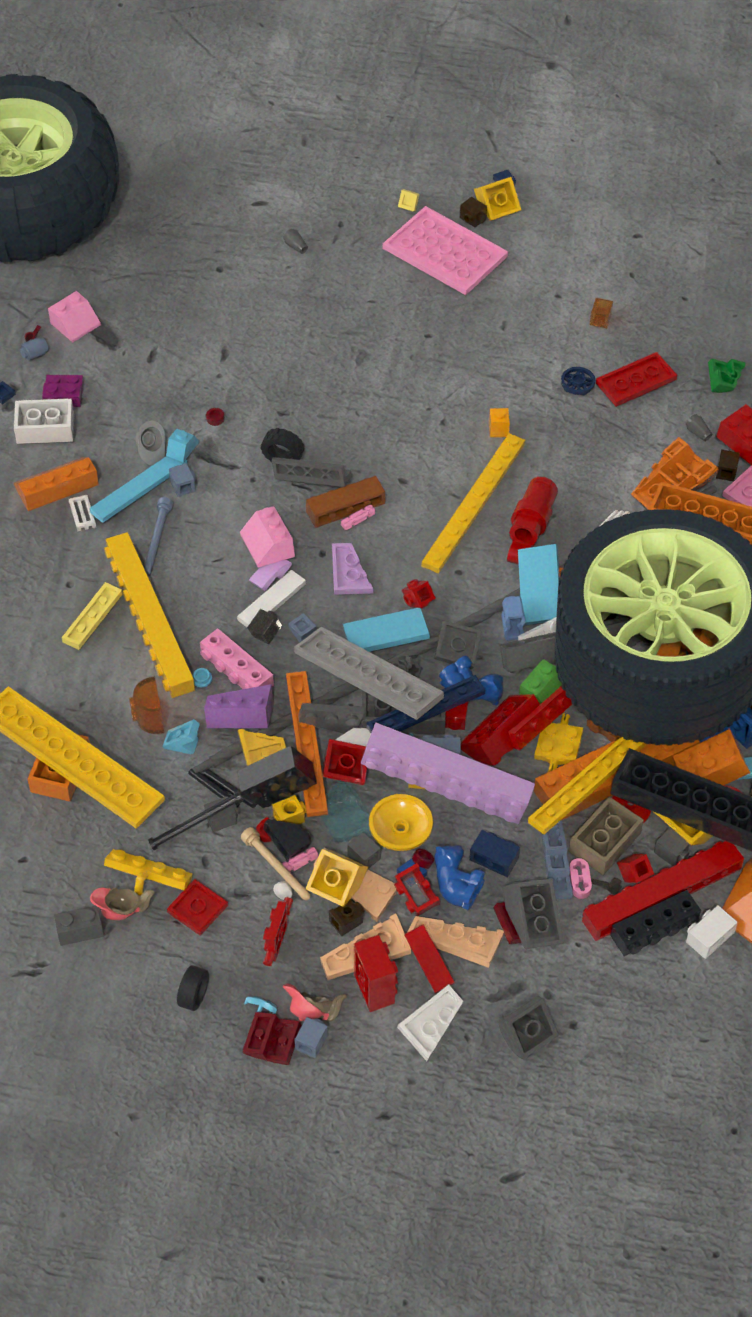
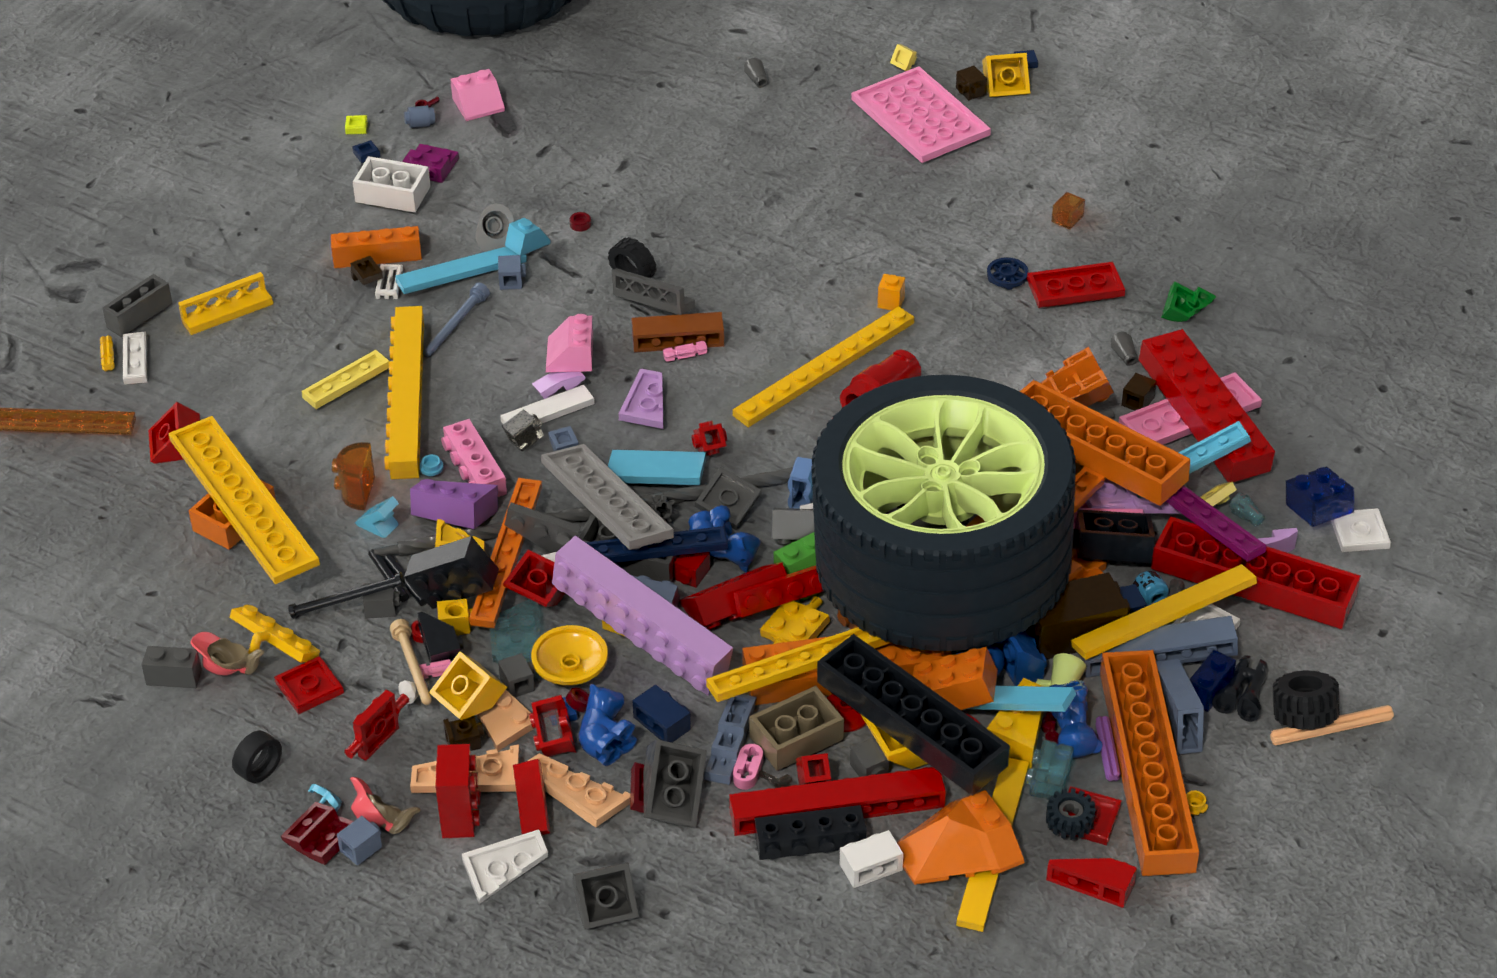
camera: 20 degrees right, 10 degrees down
(61, 509) = (366, 270): none -> dark brown bracket

